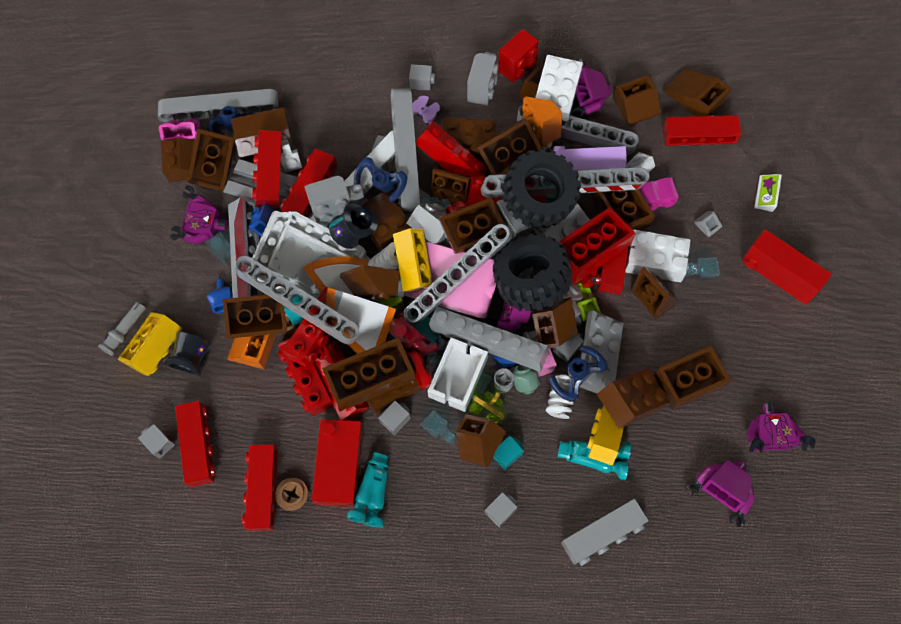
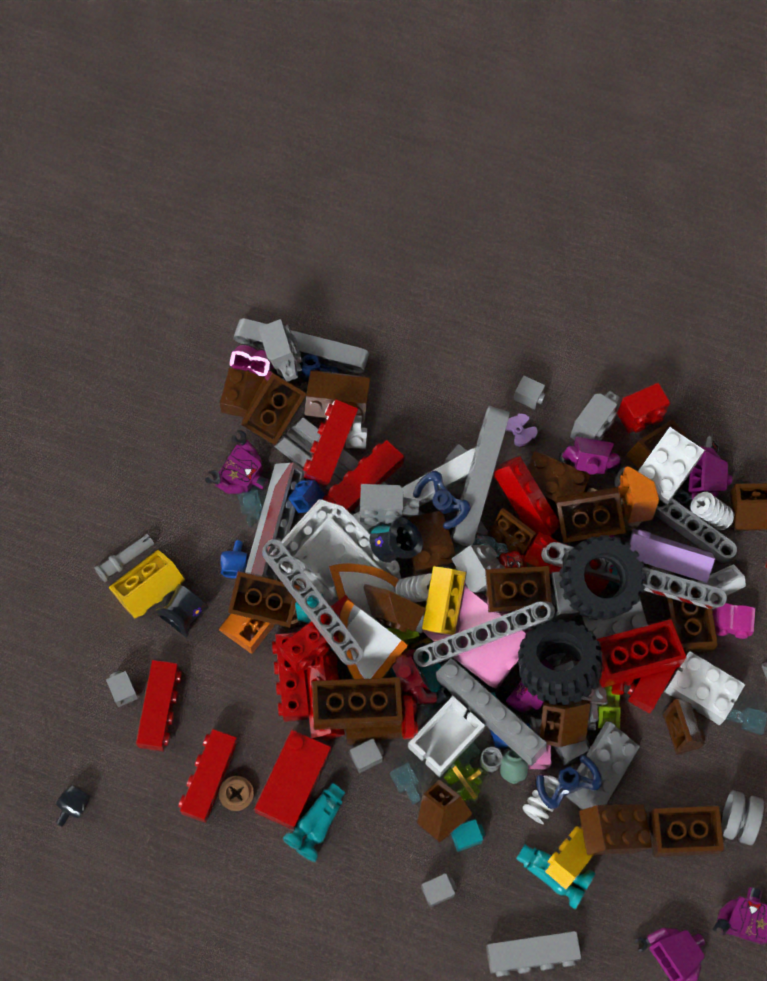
camera: 15 degrees right, 0 degrees up
(144, 559) = (72, 803): none -> black piece
(198, 107) = (281, 349): none -> light grey hinge
(492, 105) = (591, 456): none -> magenta torso
(606, 113) = (712, 510): none -> white piece
(734, 347) = (742, 817): none -> light grey wheel

